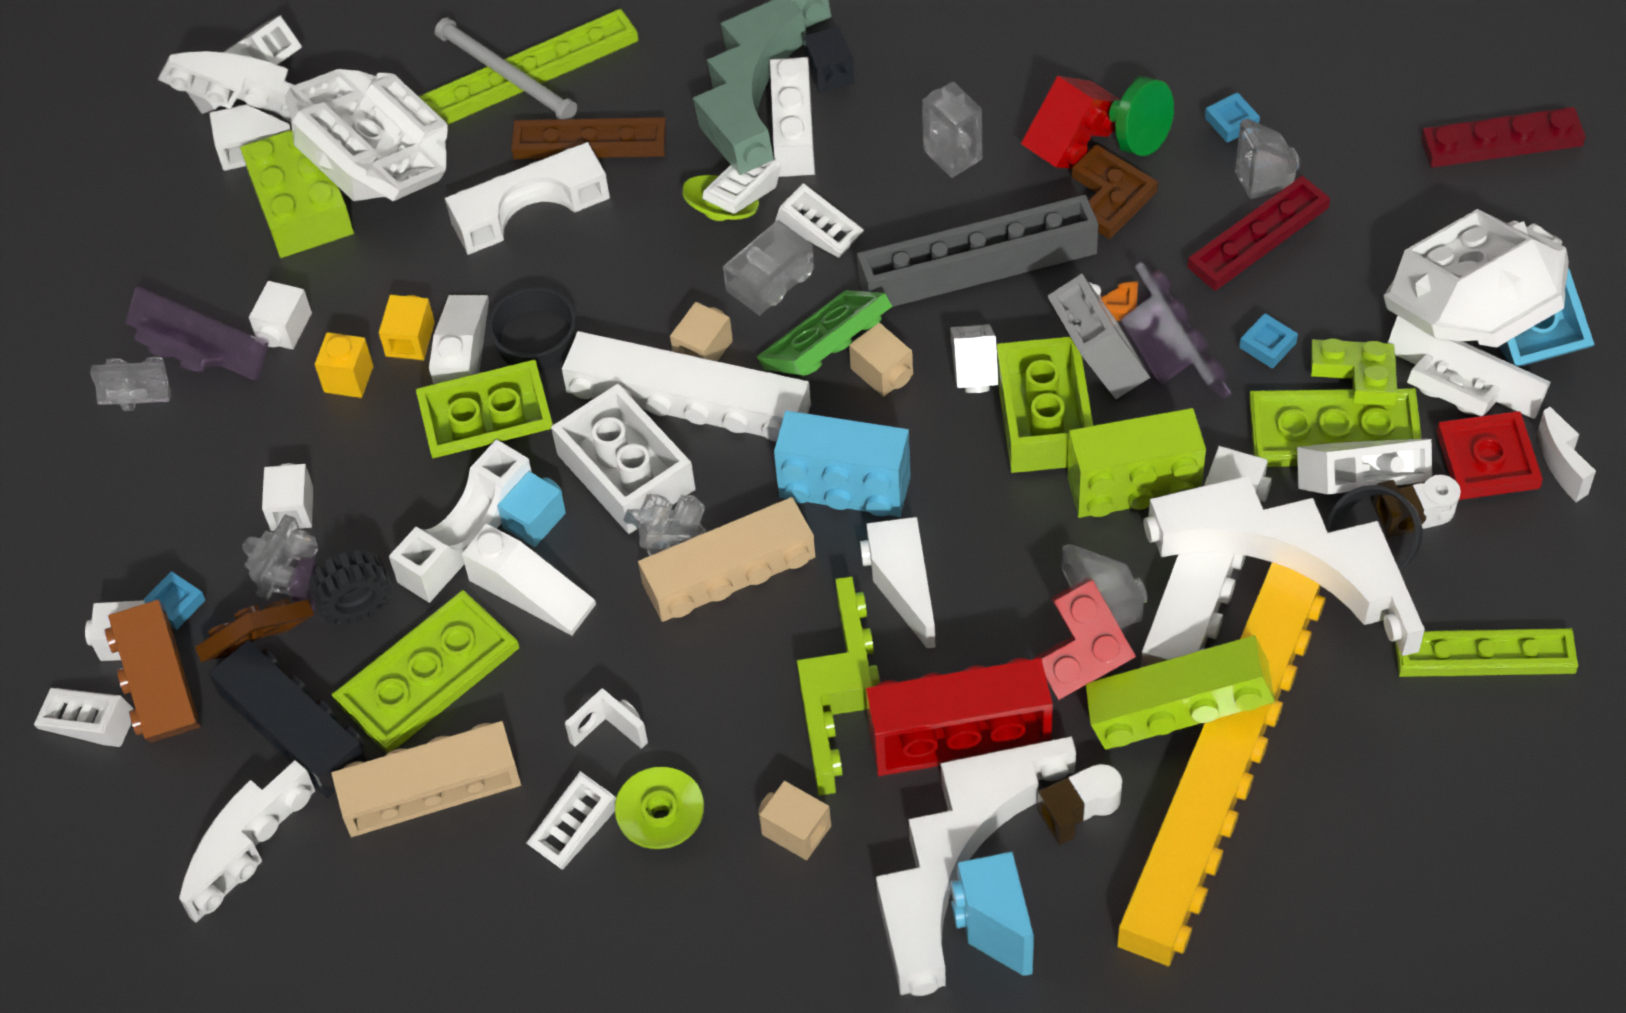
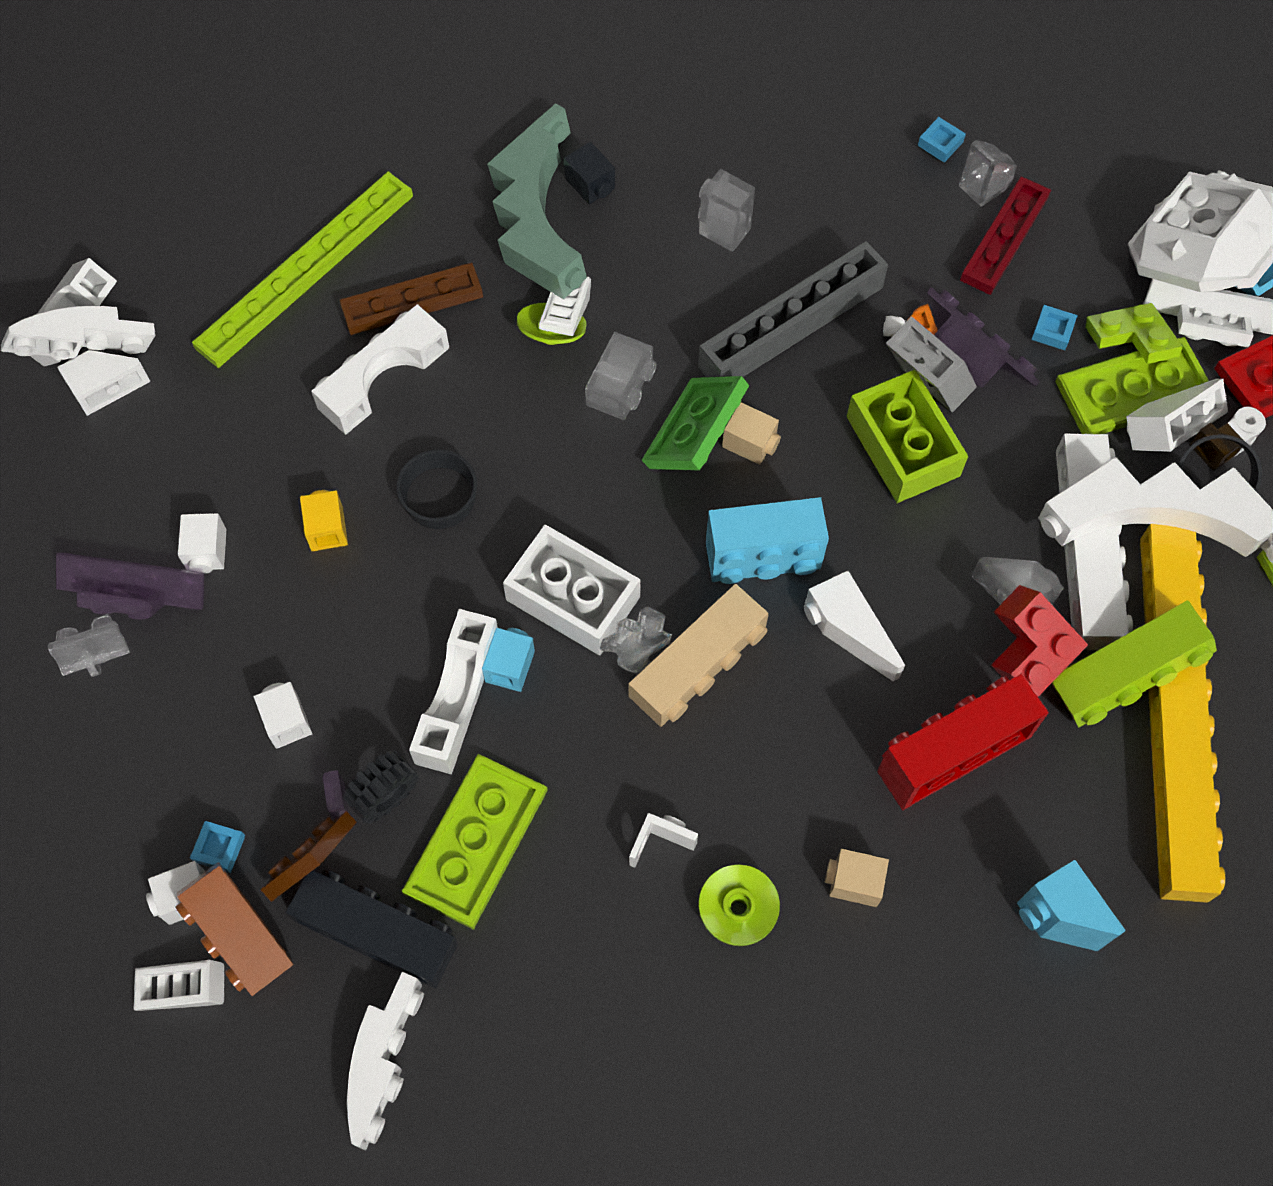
camera: 25 degrees left, 10 degrees up
(273, 553) = (298, 792): clear hips -> none
(295, 195) = (168, 418): lime brick -> none
(344, 365) = (282, 573): yellow brick -> none
(368, 133) = (218, 350): white piece -> none
(425, 778) = (522, 944): tan brick -> none
(447, 30) = (244, 231): light grey bar -> none
(459, 338) = (377, 522): white slope -> none
(484, 408) = (433, 583): lime slope -> none
(525, 579) = (532, 728): white slope -> none
(560, 812) = (655, 974): white slope -> none
(684, 385) = (596, 506): white brick -> none
(702, 333) = (589, 456): tan brick -> none
(792, 116) = (582, 230): white brick -> none
(816, 206) = (634, 308): white slope -> none
(837, 684) = (840, 742): lime bracket -> none
(974, 357) = (826, 408): white slope -> none
(979, 798) = (993, 921): white arch -> none
(1068, 120) = (818, 178): red brick -> none
(1079, 798) = (1087, 772): leg -> none
(1118, 188) = (876, 221): reddish brown plate -> none
(1134, 461) = (1005, 468): lime brick -> none
(1143, 116) = (875, 157): green tile -> none
(1502, 137) = (1154, 102): dark red plate -> none

